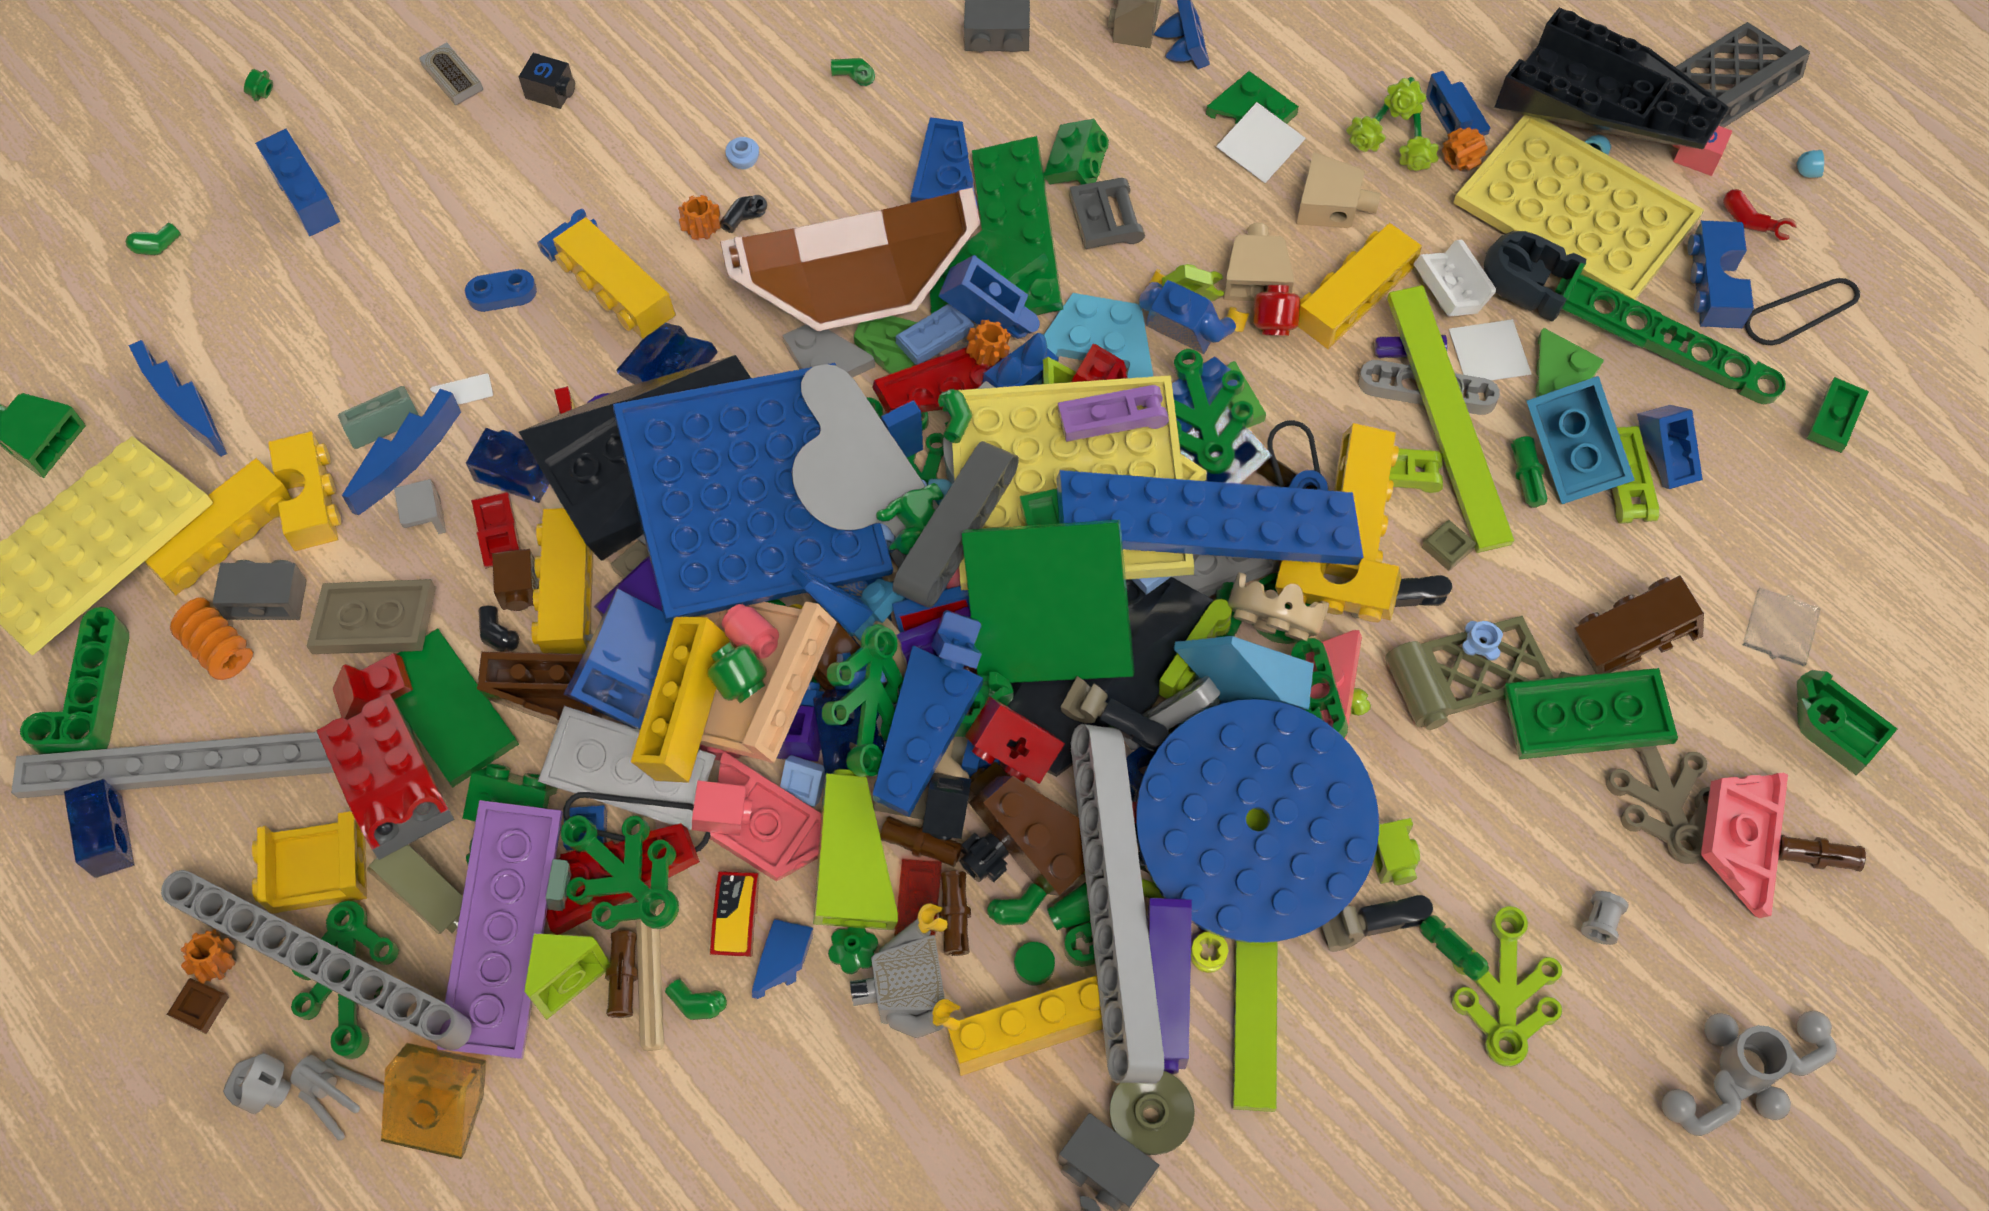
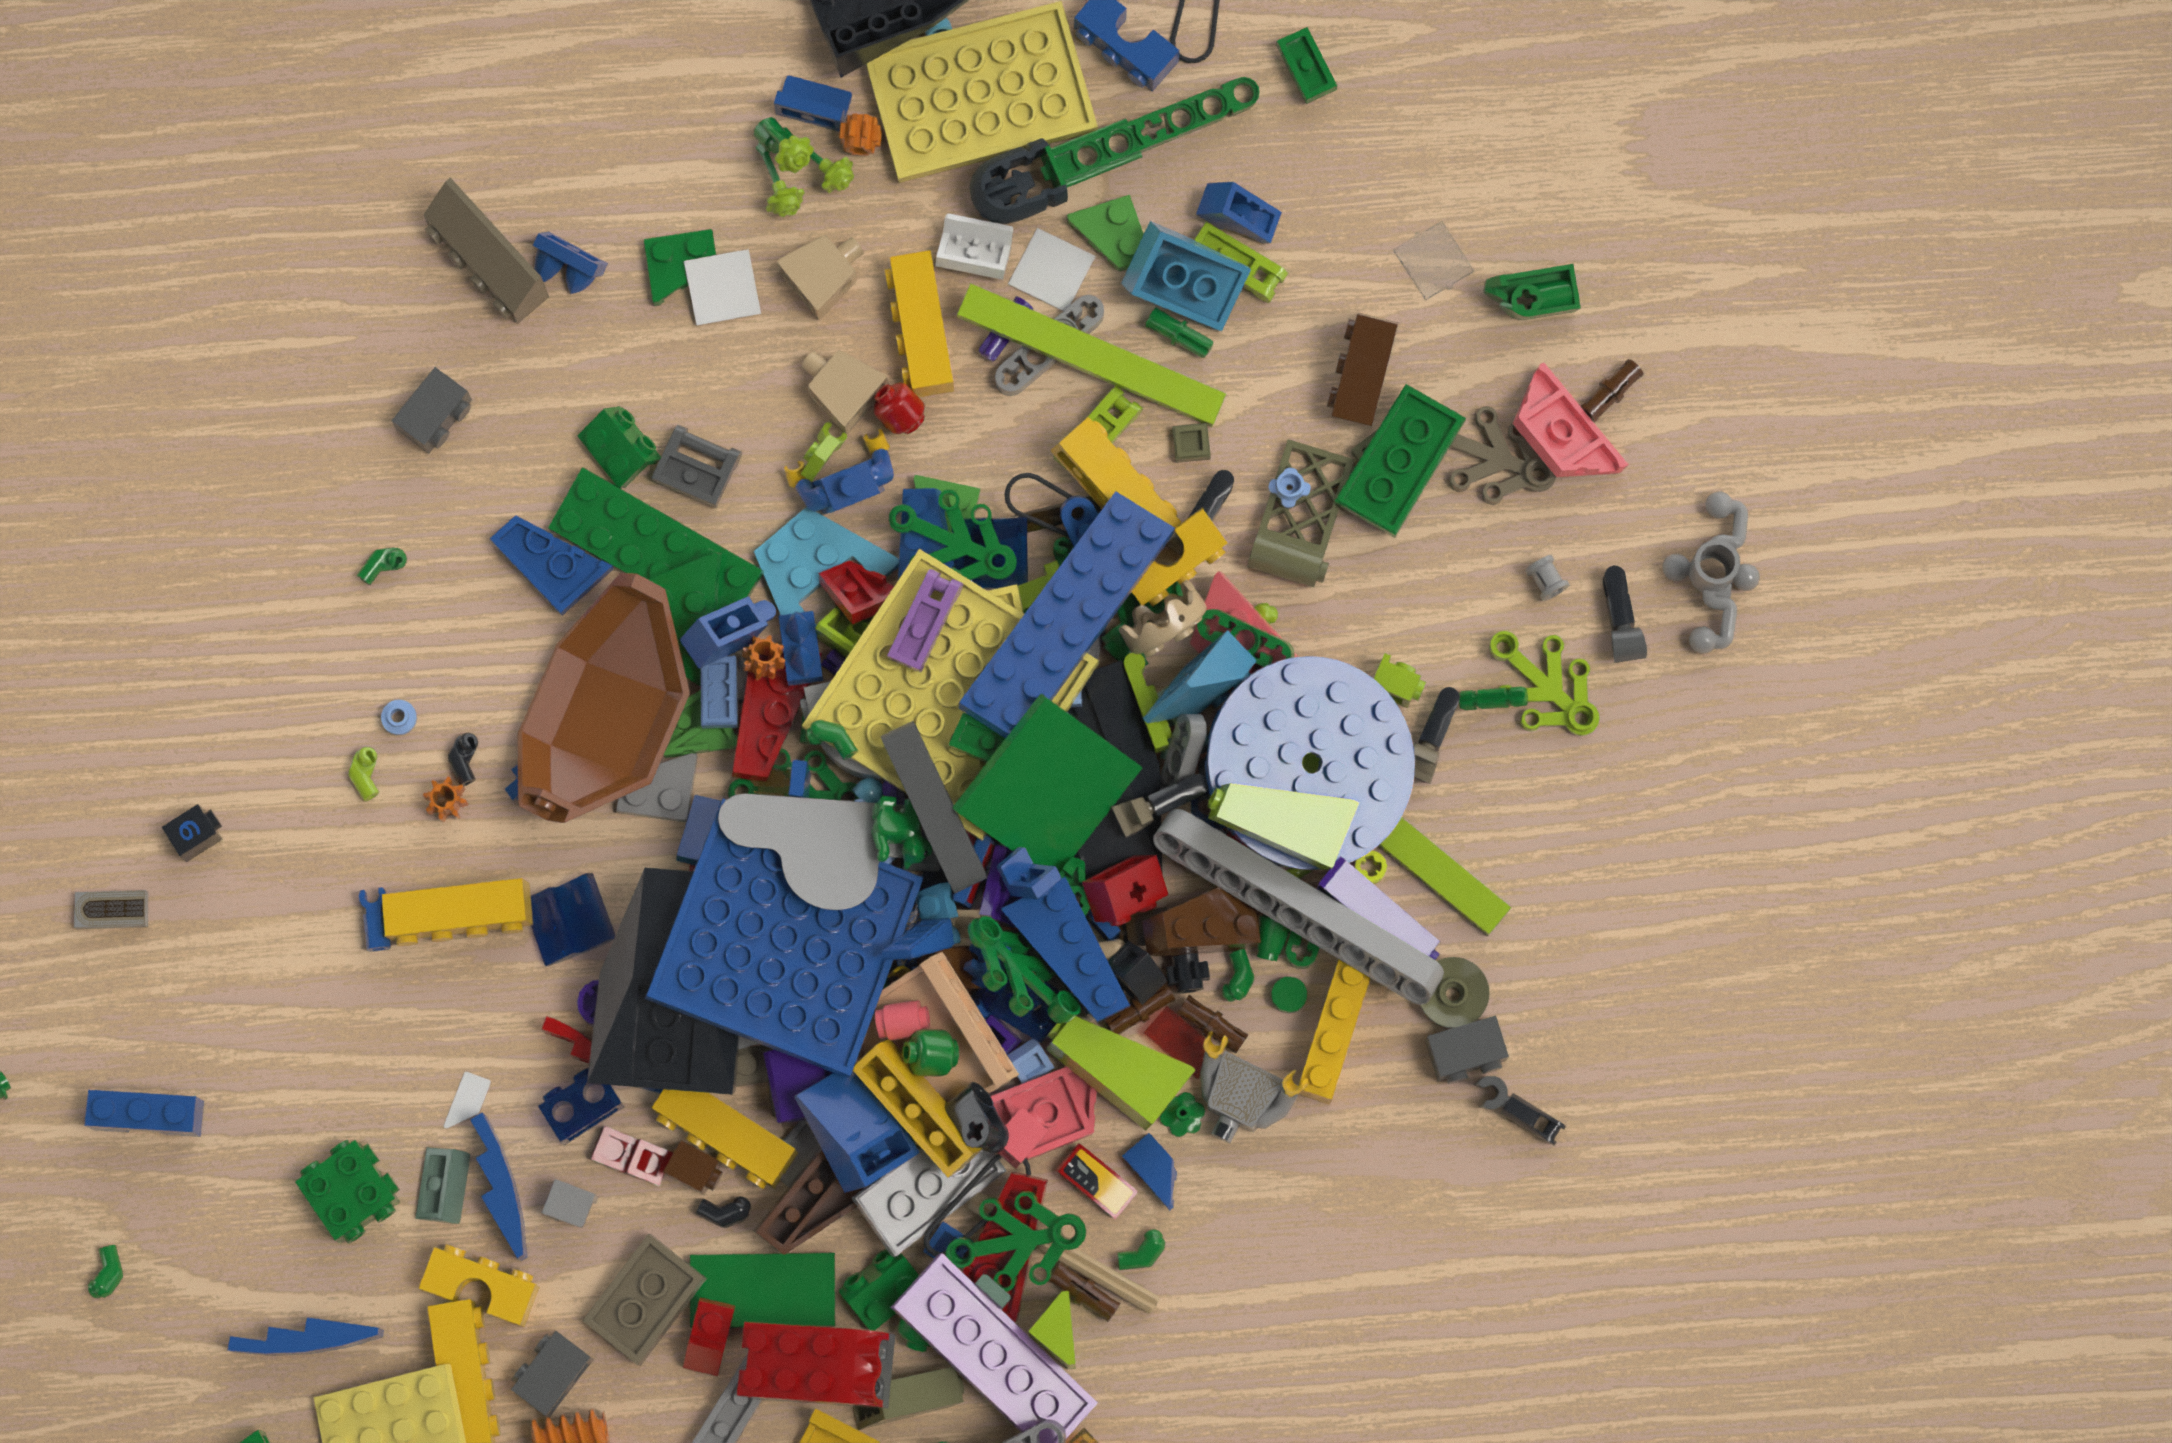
camera: 55 degrees left, 15 degrees up
(324, 351) = (349, 1190): none -> green brick
(500, 291) = (392, 1010): blue plate -> none
(680, 155) = (361, 772): none -> lime arm
(704, 752) = (978, 1119): none -> black piece
(1186, 829) = (1290, 821): none -> slope
(1614, 1030) = (1627, 642): none -> piece

